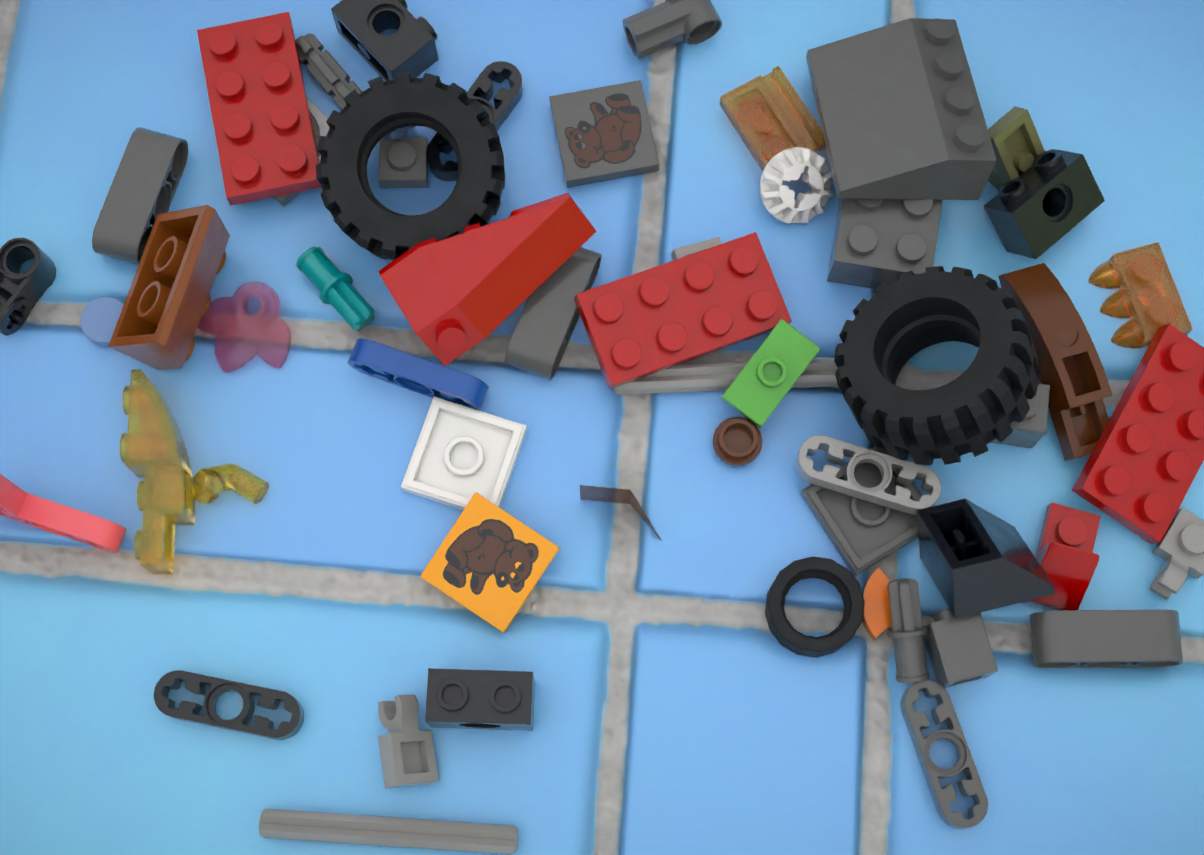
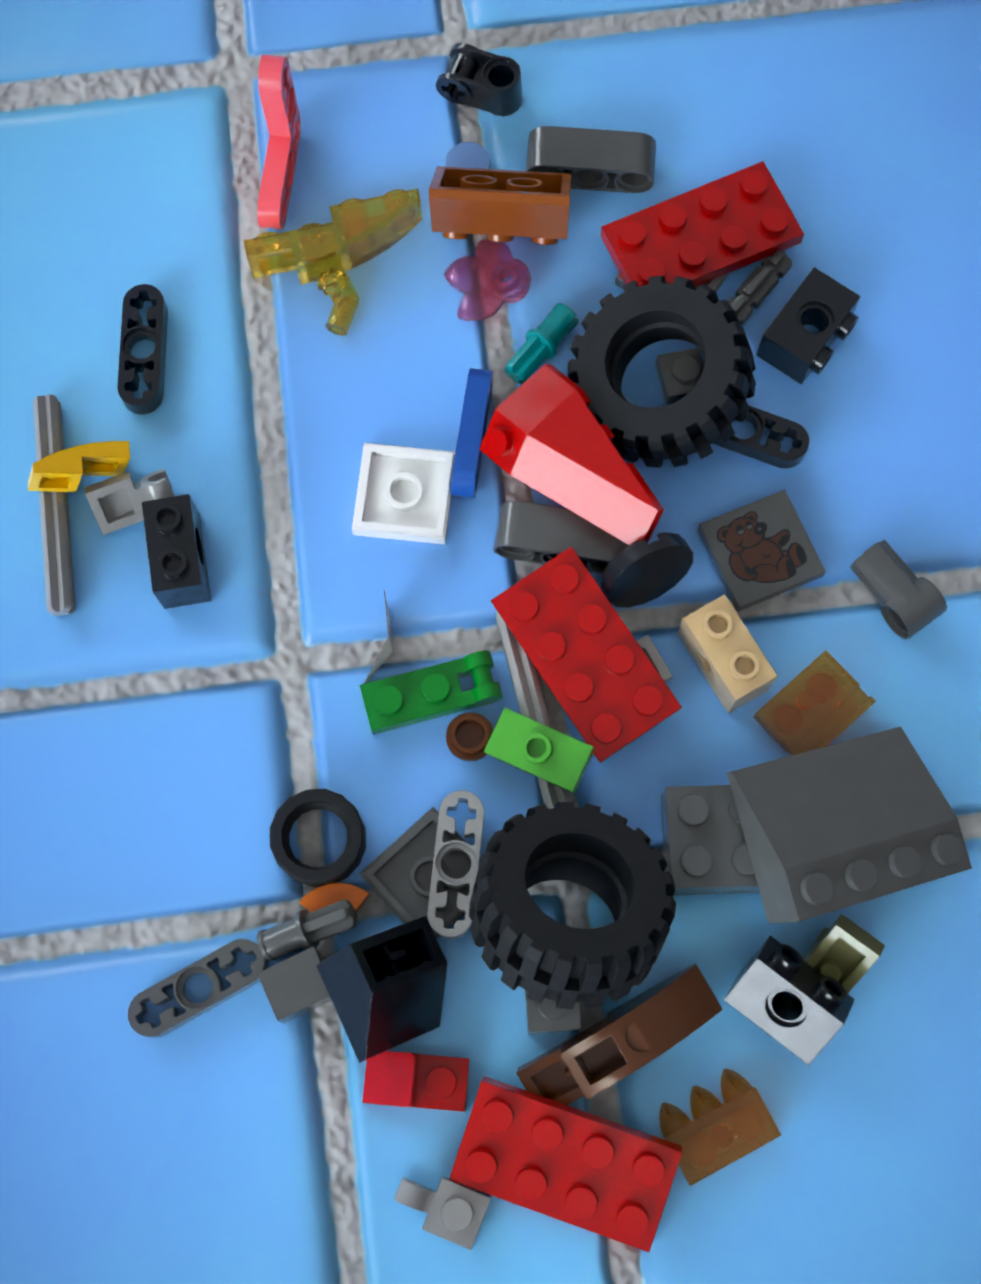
camera: 80 degrees right, 0 degrees up
(363, 793) = (65, 468): none -> yellow slope
(490, 562) = (307, 534): tile -> none
(611, 233) = (646, 570): none -> black tile
(683, 474) = (429, 692): none -> green plate
(707, 184) = (726, 653): none -> tan brick
(788, 166) = (761, 727): white gear -> none
(1105, 638) = (336, 1134): dark grey beam -> none

